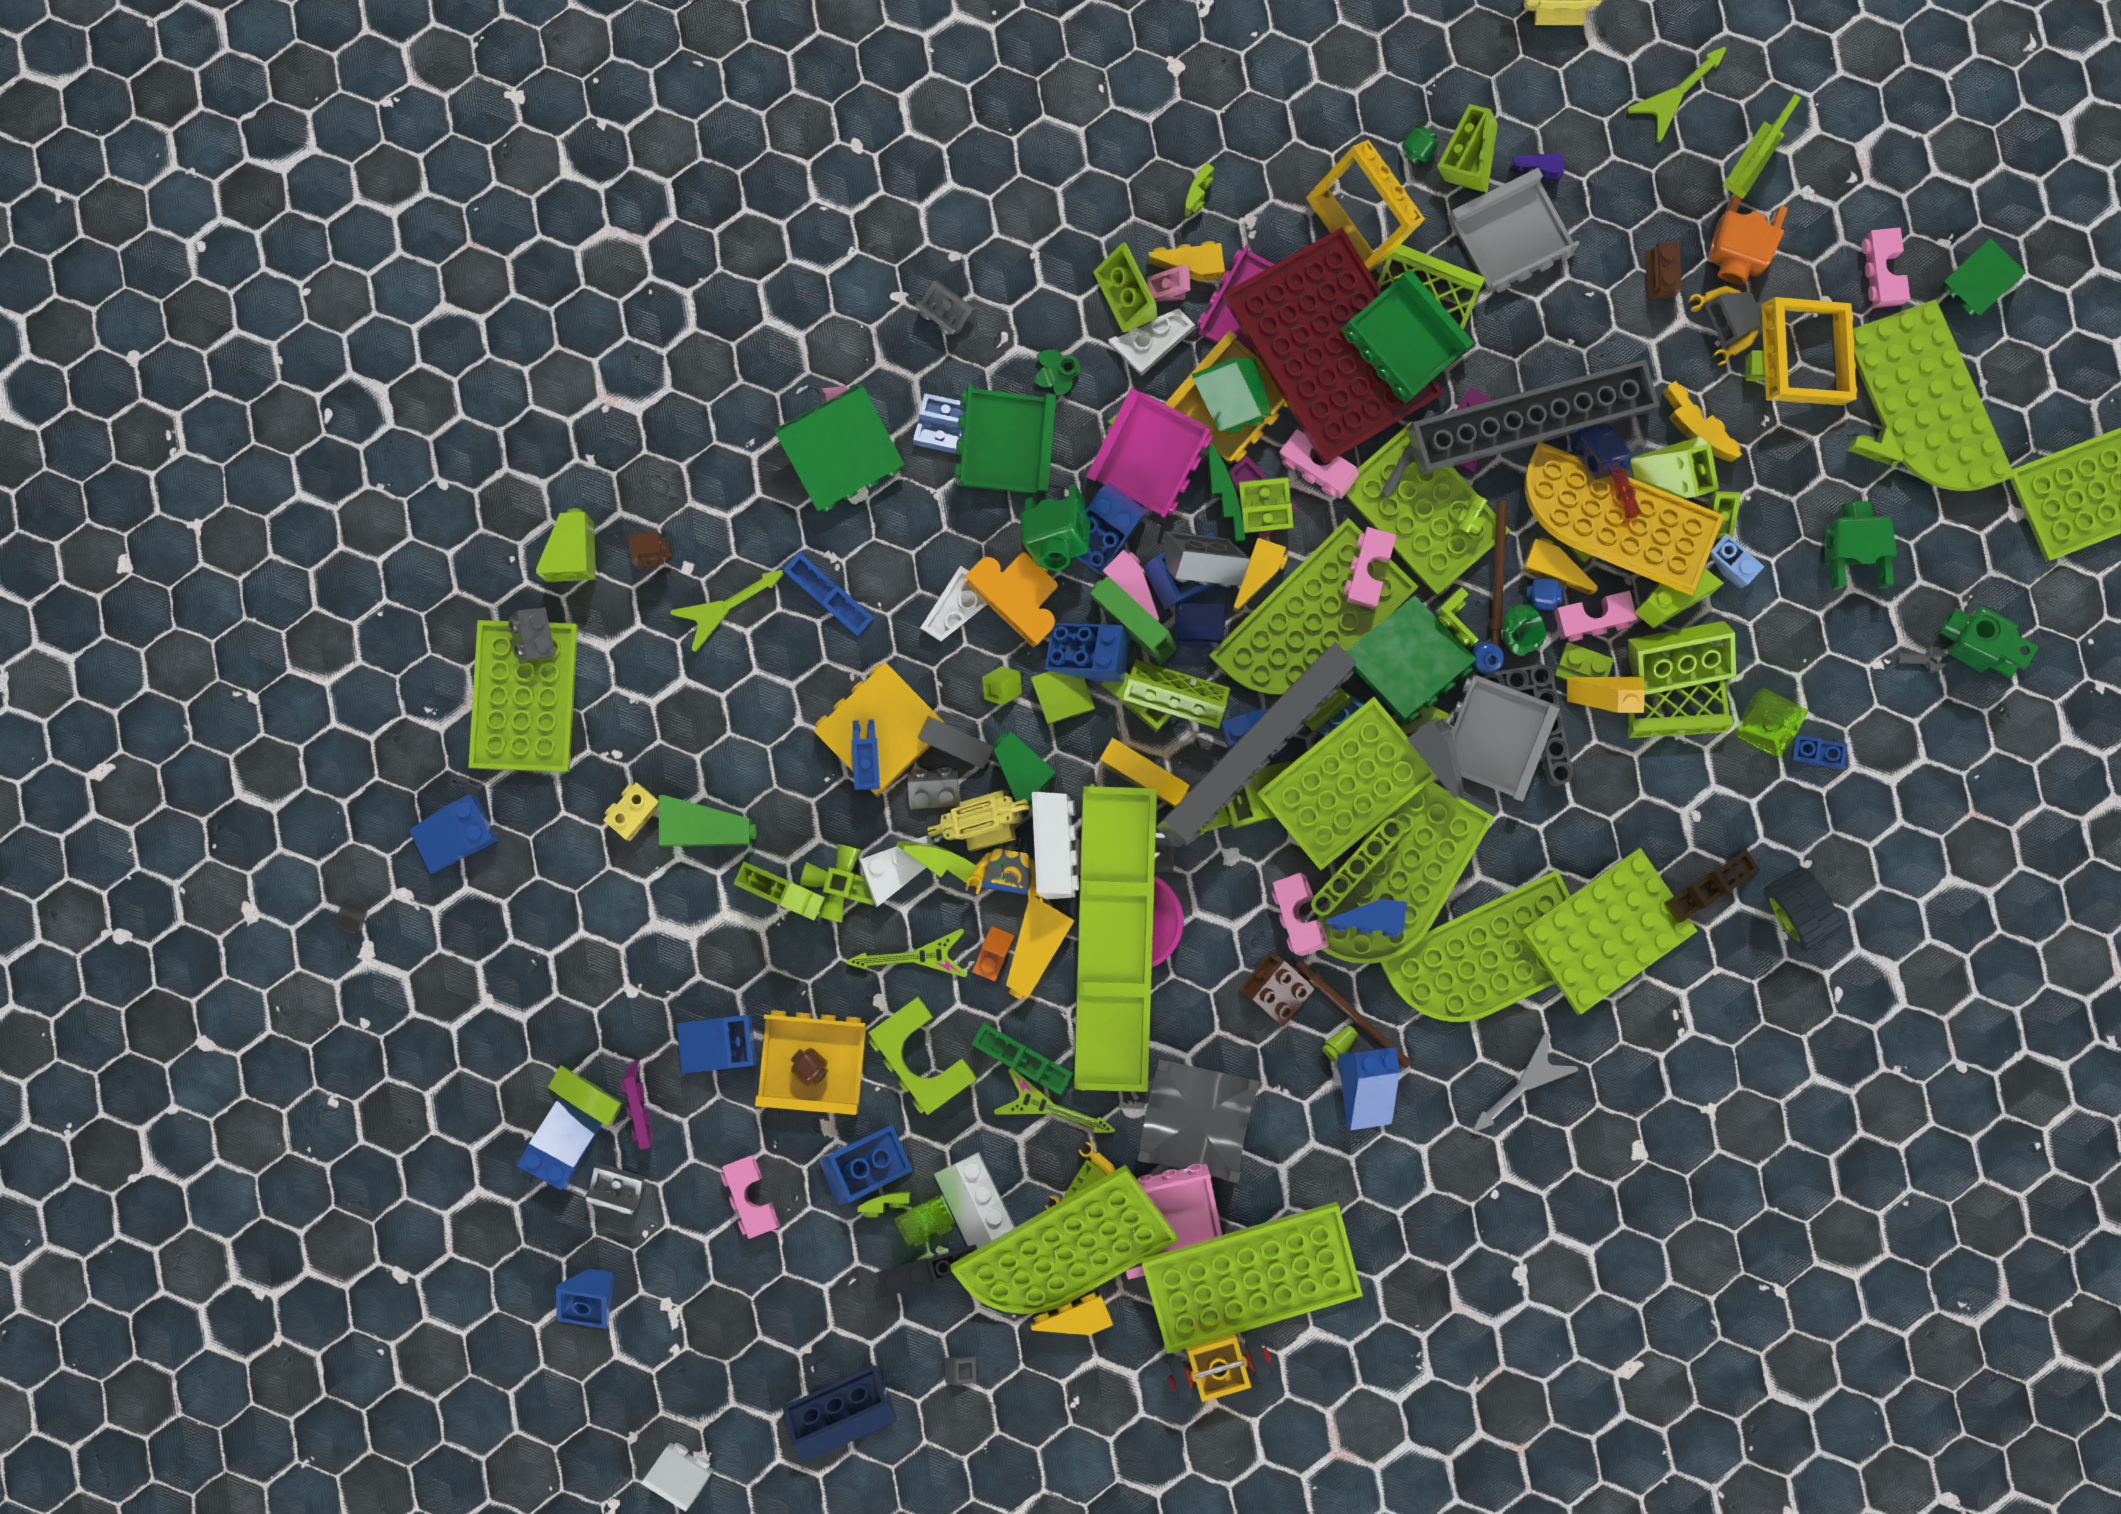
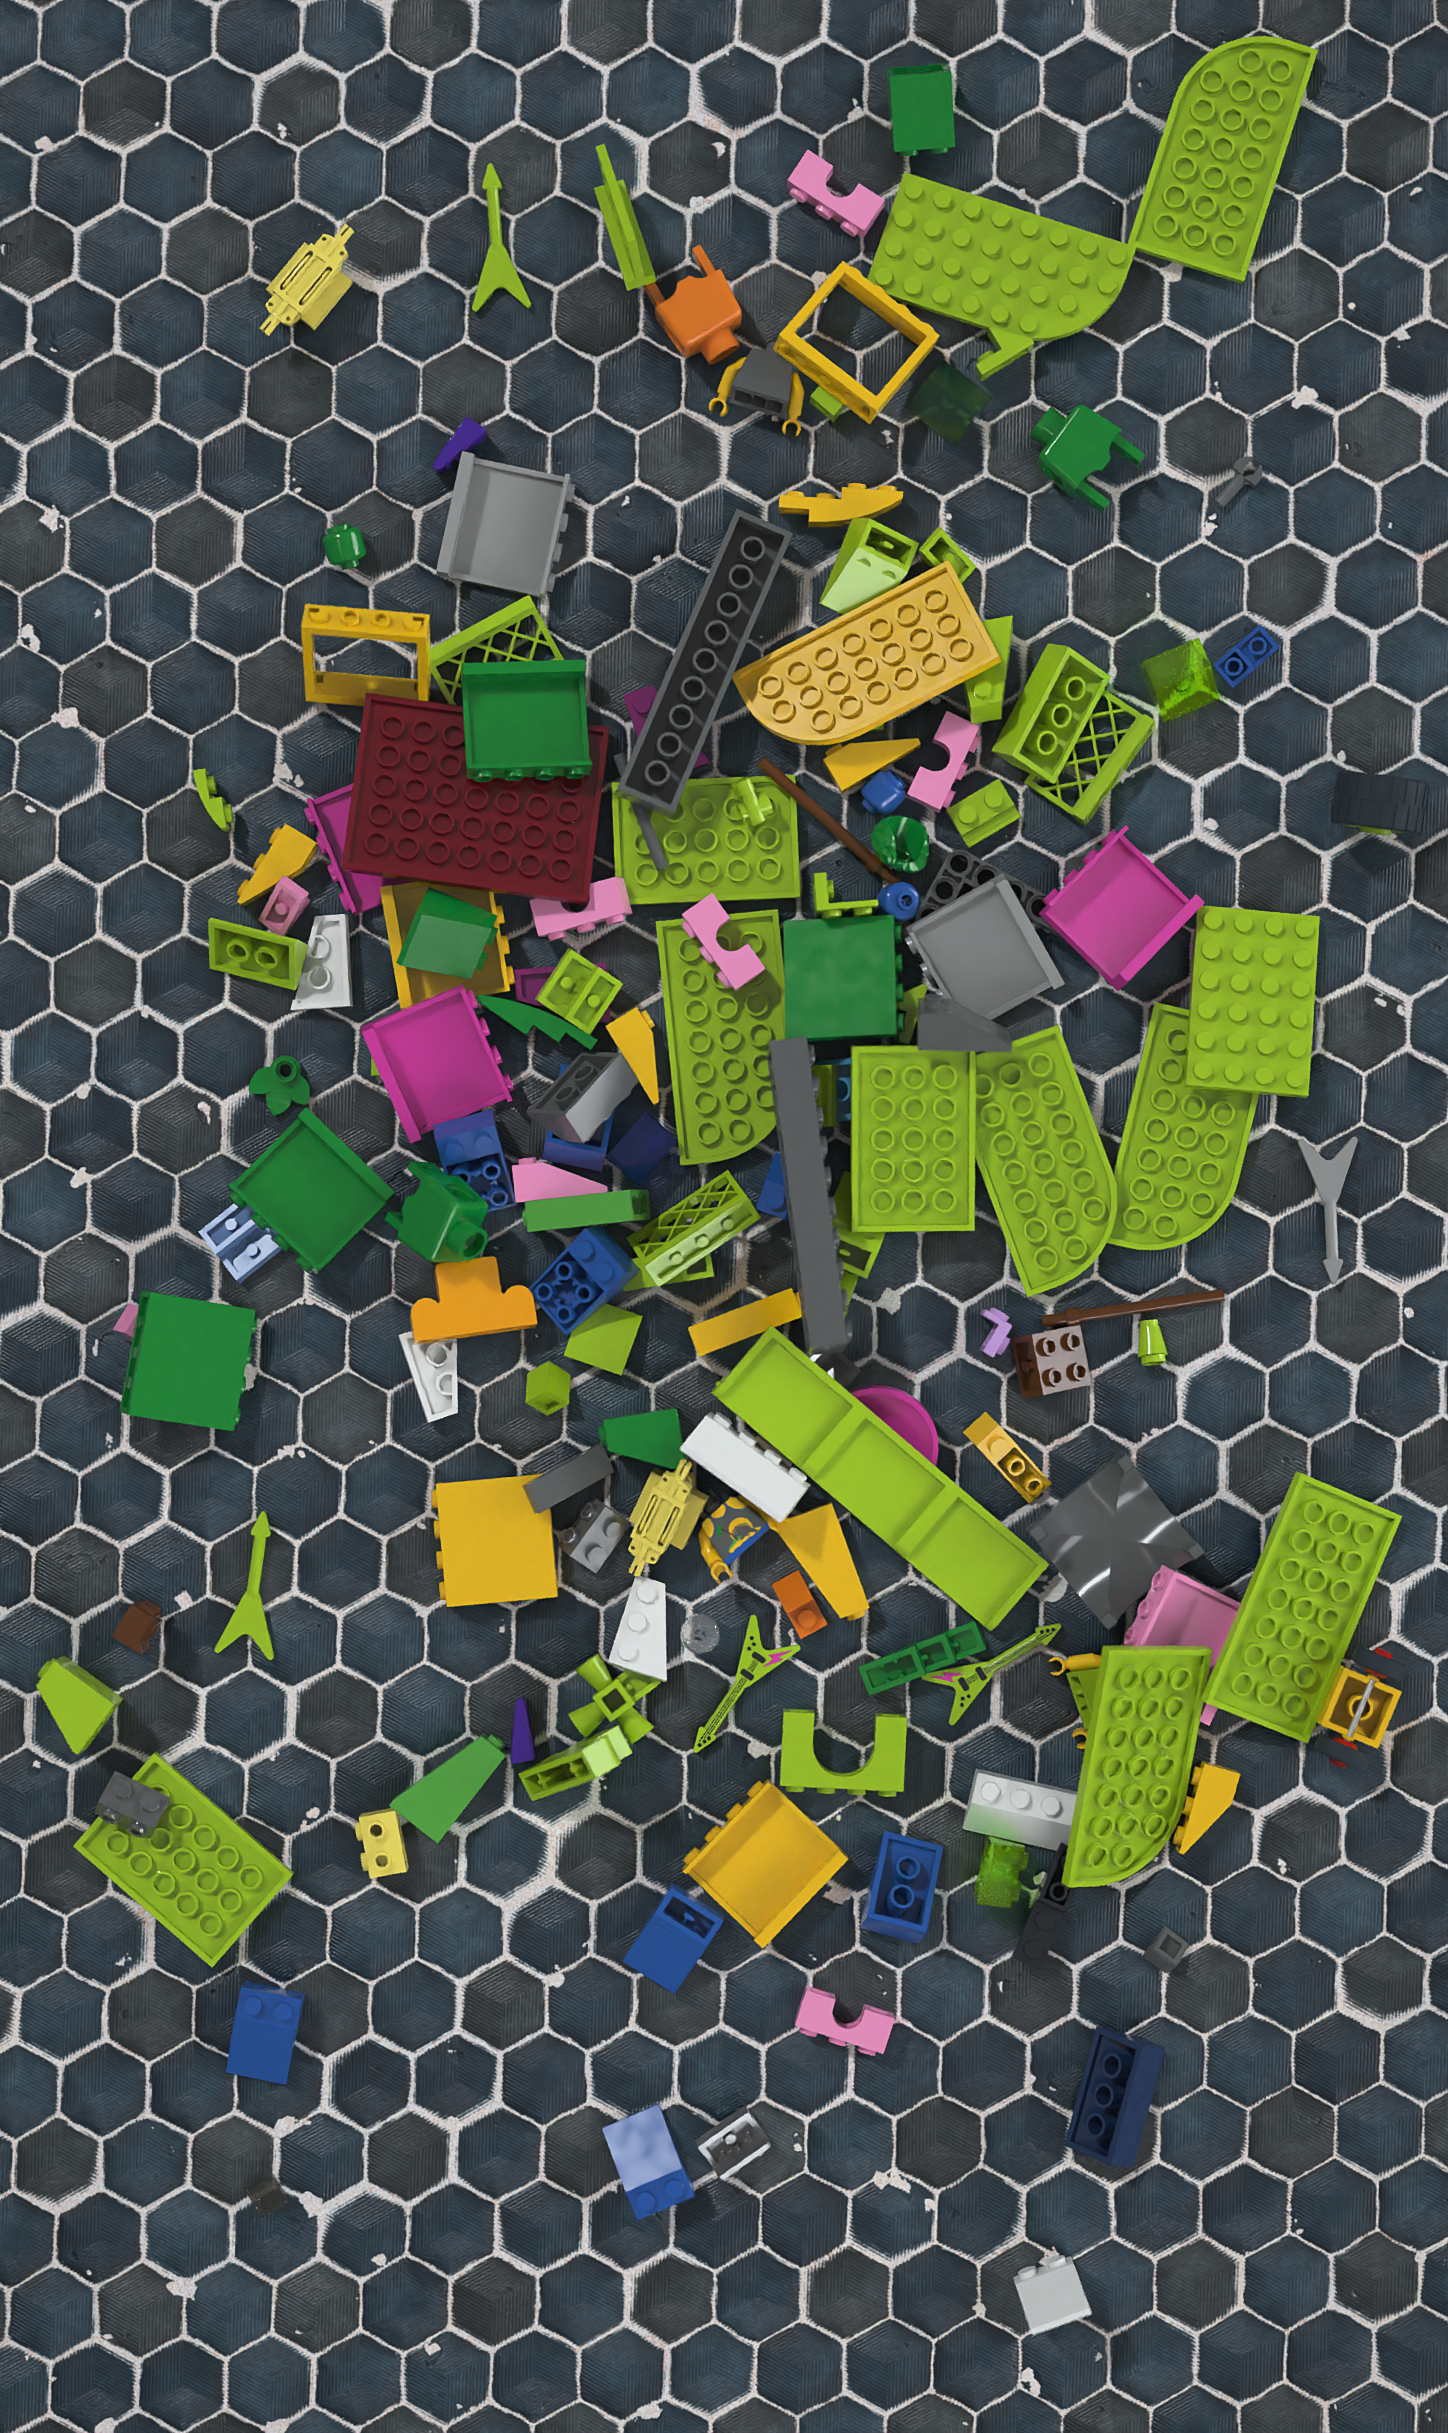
camera: 50 degrees left, 5 degrees up
(585, 1095) = (621, 2102): lime slope -> none
(586, 1298) = (815, 2251): blue slope -> none
(635, 1091) = (680, 2064): magenta wing -> none
(769, 845) = (523, 1743): none -> dark purple slope
(809, 1066) = (766, 1867): reddish brown head -> none
(827, 593) = (320, 1484): blue slope -> none
(865, 758) = (514, 1578): blue hinge -> none
(877, 1204) = (948, 1906): lime slope -> none
(933, 902) = (703, 1622): none -> clear head
(938, 859) = (668, 1585): lime slope -> none
(945, 308) = (130, 1145): flat silver bracket -> none
(1193, 1010) = (1007, 1457): none -> yellow slope
(1264, 941) = (996, 1340): none -> lavender bracket
(1291, 895) = (974, 1277): bright pink arch -> none
(1345, 871) = (999, 1208): lime beam -> none
(1369, 1086) = (1213, 1350): slope -> none
(1378, 915) = (1063, 1211): blue slope -> none
(1471, 150) = (391, 501): lime wedge -> none
(1596, 798) = (1117, 909): none -> dark pink panel
(1597, 449) = (787, 624): clear blue piece -> none
(1608, 693) = (1028, 813): yellow slope -> none
(1621, 480) = (849, 638): clear red pin -> none
(1663, 270) = (661, 413): reddish brown window -> none
(1712, 886) = (1289, 867): dark brown slope -> none
(1735, 562) = (1000, 585): light blue slope -> none
(1818, 440) = (949, 402): none -> clear green slope
(1986, 641) = (1282, 402): green piece -> none

